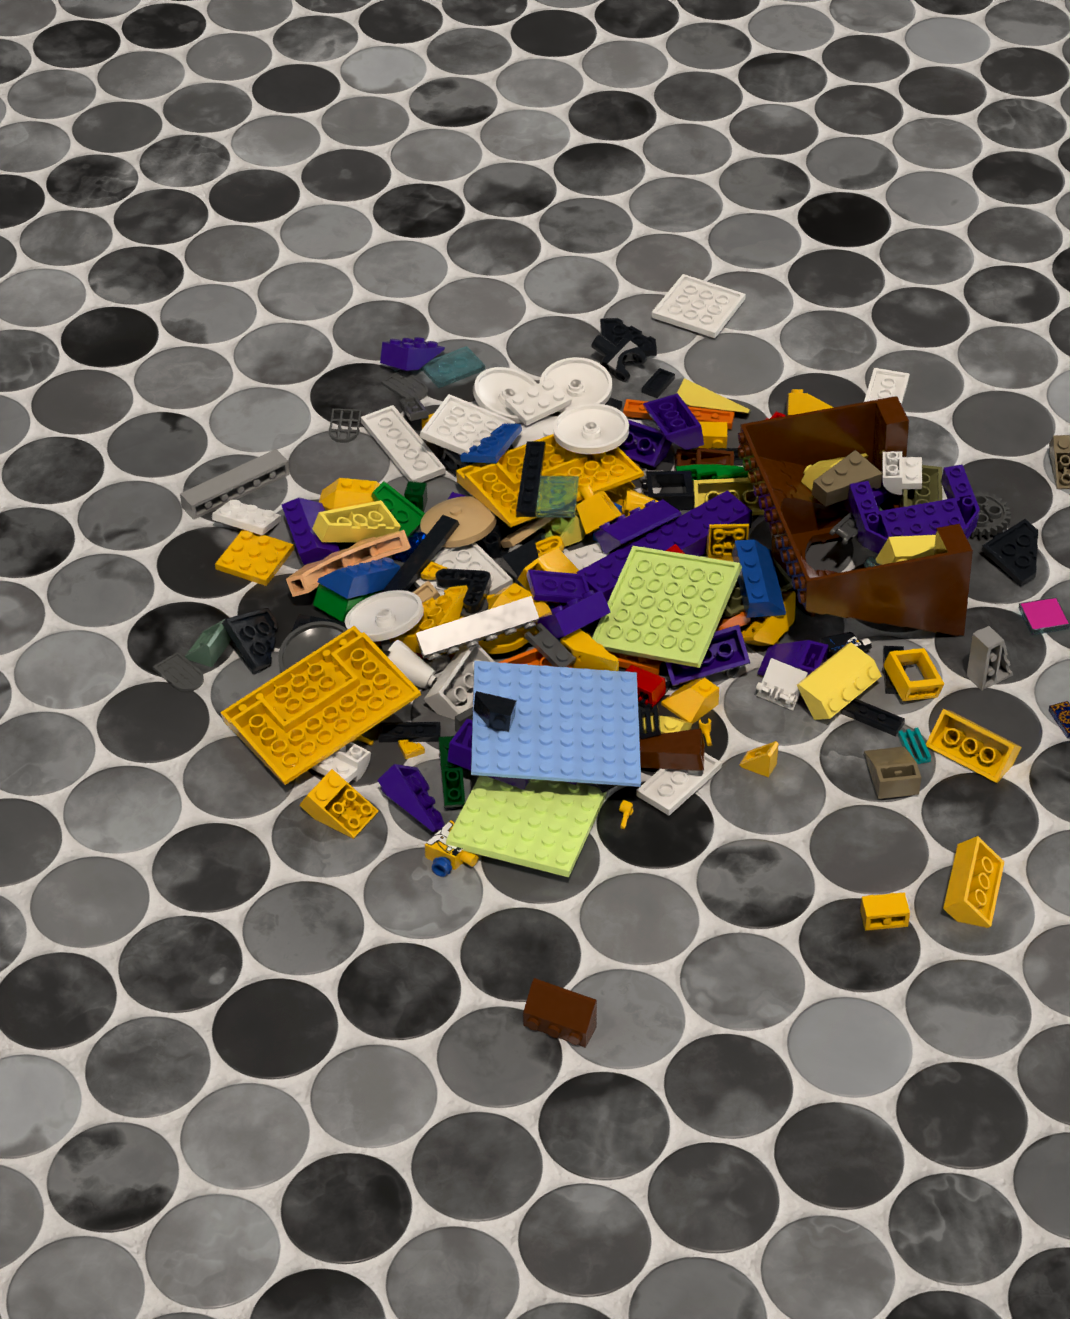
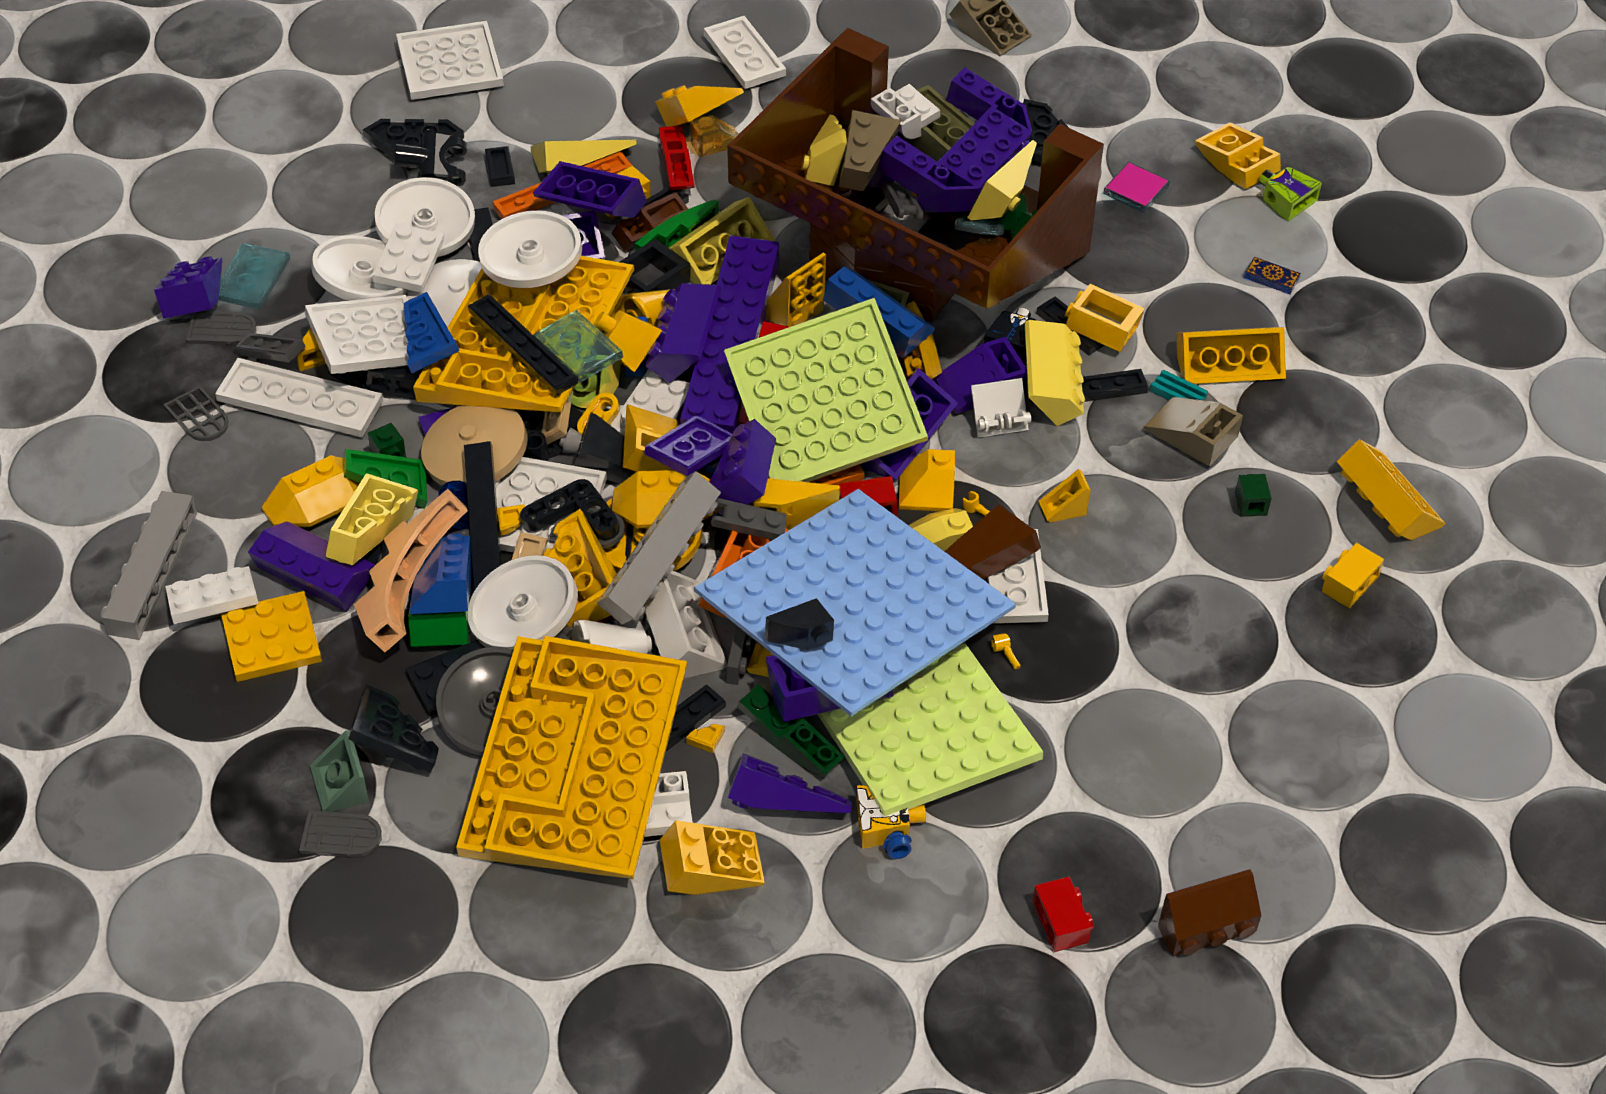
camera: 45 degrees left, 5 degrees up
(484, 959) = (1062, 914): none -> red brick
(648, 713) = (940, 525): black tile -> none
(880, 829) = (1253, 495): none -> dark green brick
(988, 659) = (1157, 257): light grey wedge -> none

